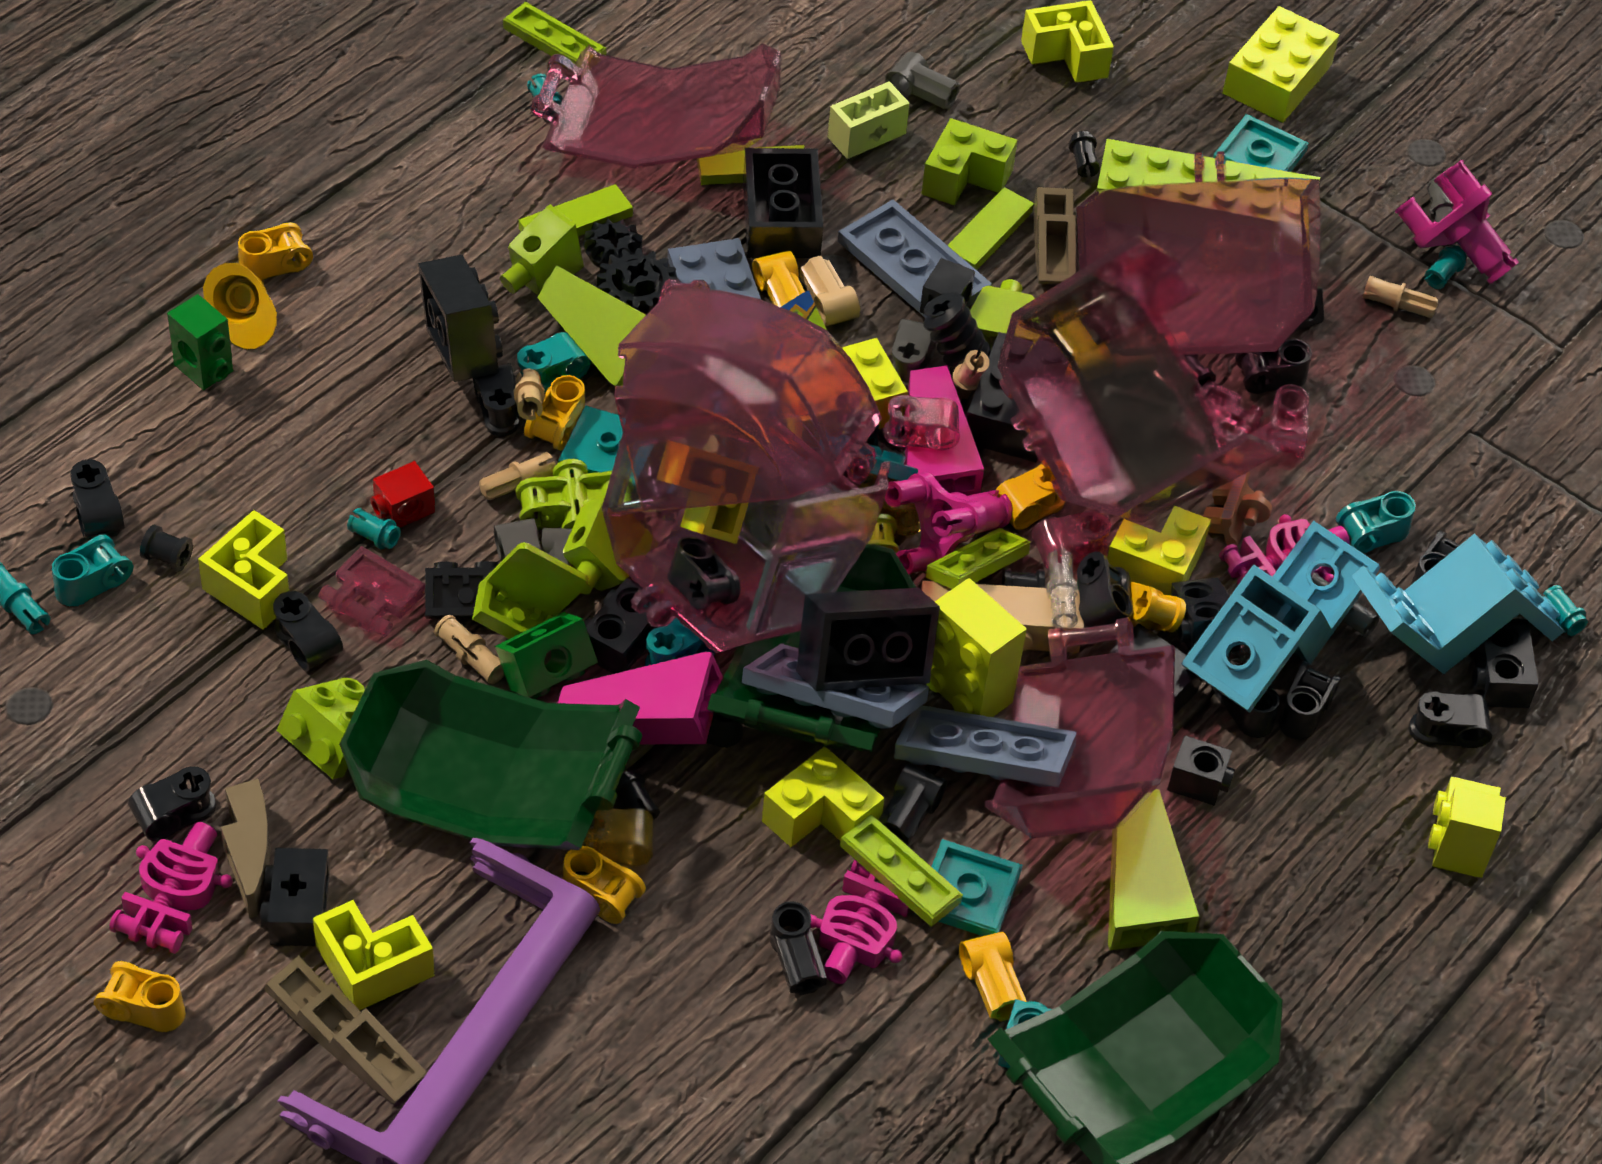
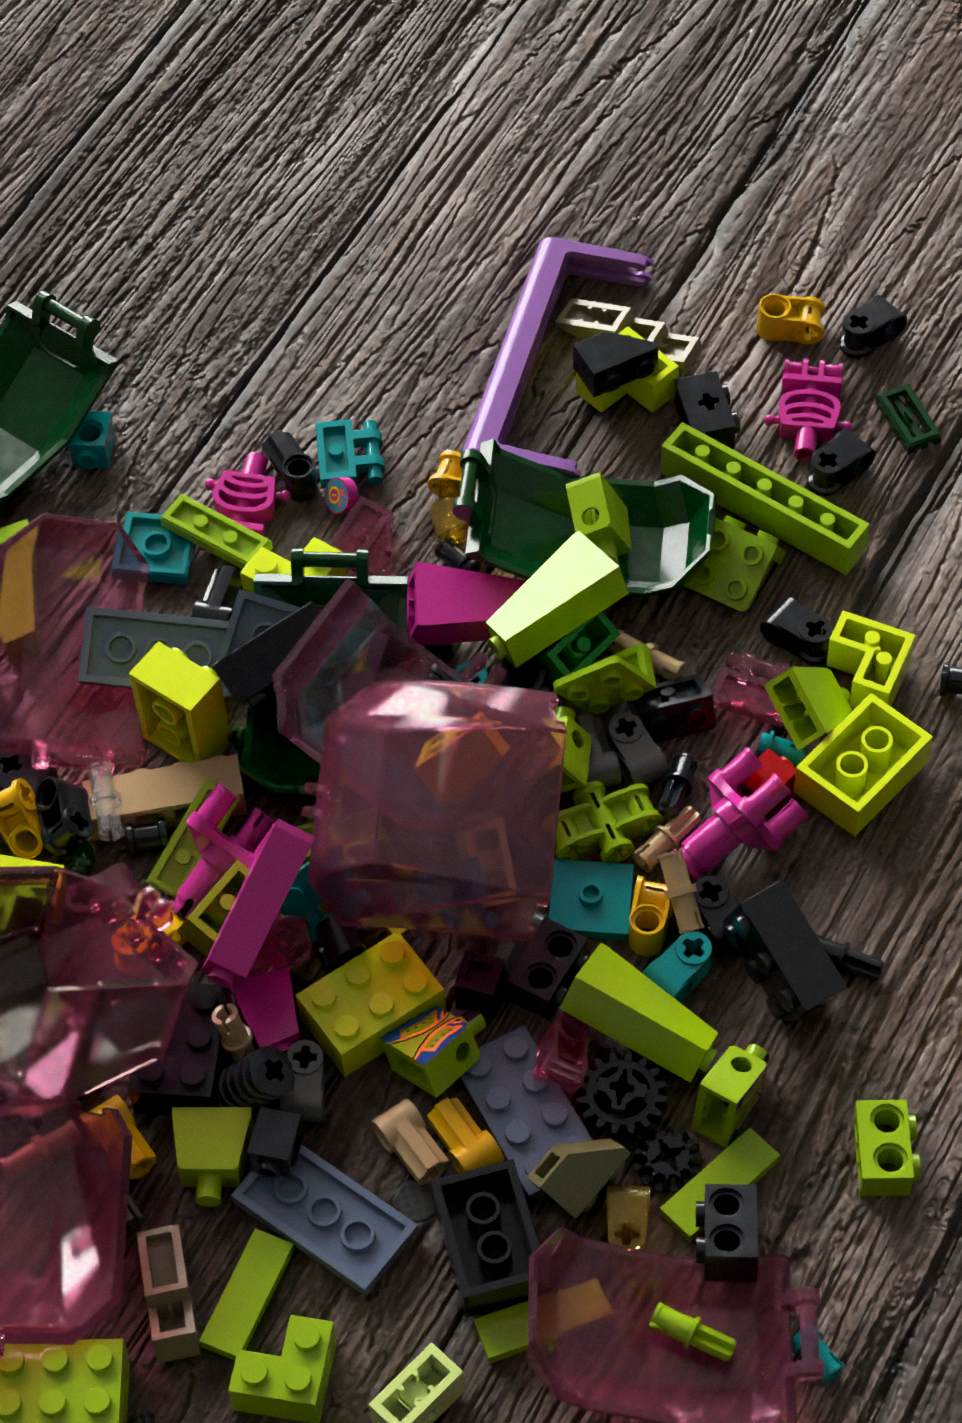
camera: 175 degrees right, 5 degrees up
(51, 964) = (871, 327): none -> black piece
(68, 879) = (919, 440): none -> dark green tile
(247, 842) = (763, 437): dark tan slope -> none
(282, 766) = (767, 498): none -> lime brick
(306, 477) = (862, 764): none -> neon yellow brick
(329, 533) = (809, 702): none -> lime torso
(392, 914) = (613, 360): none -> black slope
(398, 348) = (851, 960): none -> black axle
(430, 202) = (878, 1147): none -> lime brick
(447, 445) = (738, 818): none -> dark pink wheel
(477, 742) = (611, 527): none -> lime torso
(491, 510) = (677, 784): none -> black axle
(550, 656) = (556, 600): none -> slope
(580, 153) = (728, 1232): none -> black brick
(639, 119) = (691, 1332): none -> lime axle
(664, 198) = (628, 1215): none -> clear yellow piece
(694, 225) = (577, 1171): none -> olive slope
(734, 841) = (369, 528): none -> clear pink wing
(739, 958) = (337, 454): none -> teal plate
(747, 896) = (341, 495): none -> tile
(929, 402) = (257, 904): none -> dark pink slope
(964, 447) = (208, 917): none -> lime brick
(991, 966) = (128, 487): yellow piece -> none

